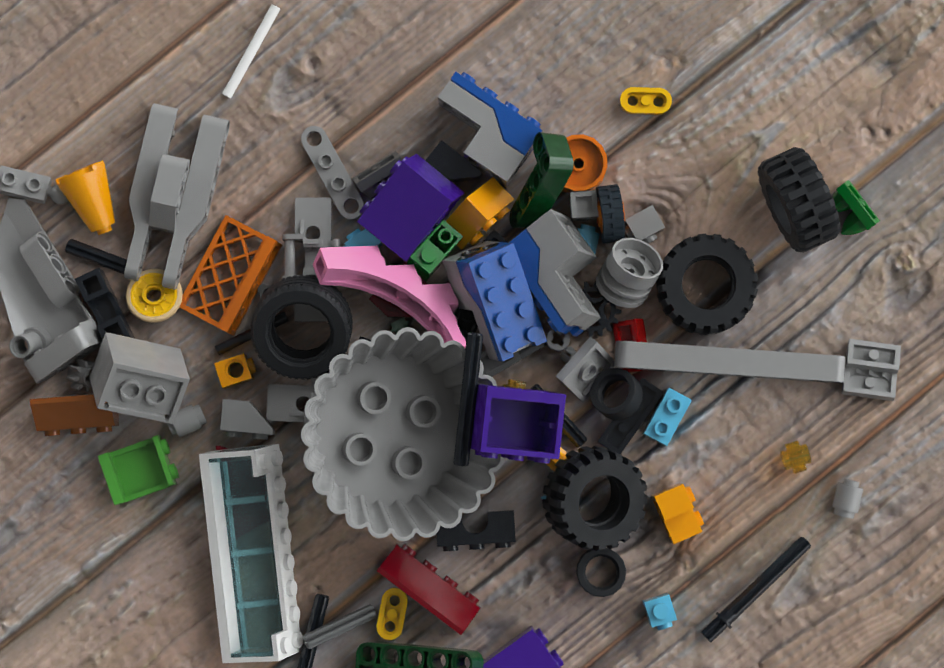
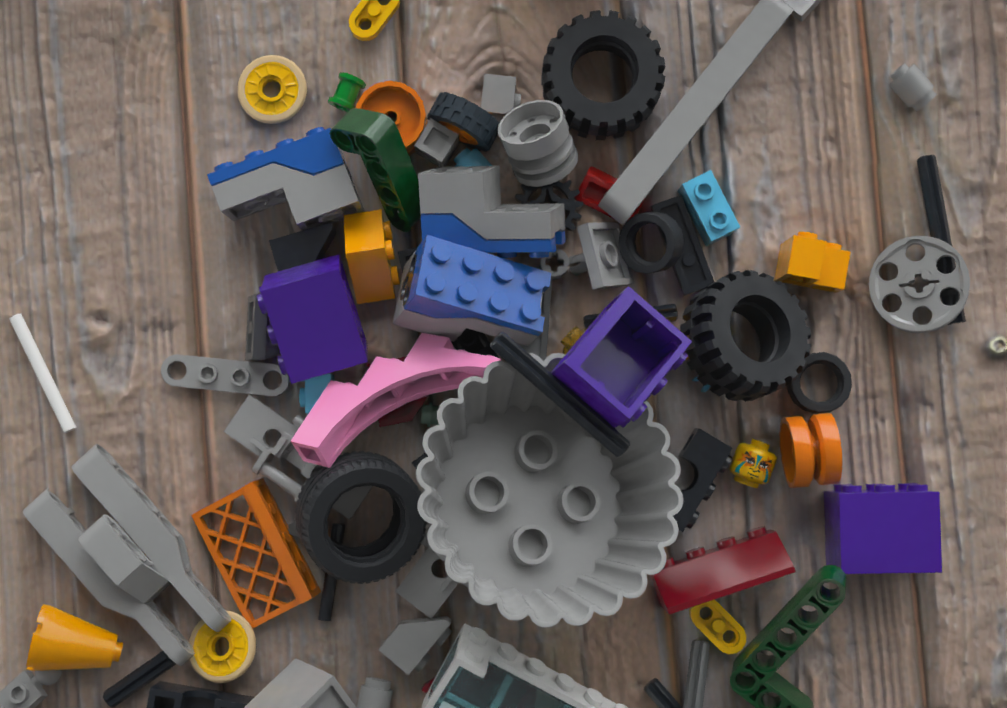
camera: 65 degrees left, 0 degrees up
(223, 370) = (357, 630): light orange brick -> none
(434, 250) = (376, 324): green slope -> none
(516, 564) = (753, 463): none -> yellow head
(545, 53) = (277, 108): none -> wheel
(552, 597) = (810, 450): none -> orange wheel
(577, 121) = (346, 92): none -> green bush
(660, 611) = (900, 350): medium azure brick -> none
(716, 581) = (927, 269): none -> light grey wedge
(795, 457) = (836, 108): clear yellow gear -> none

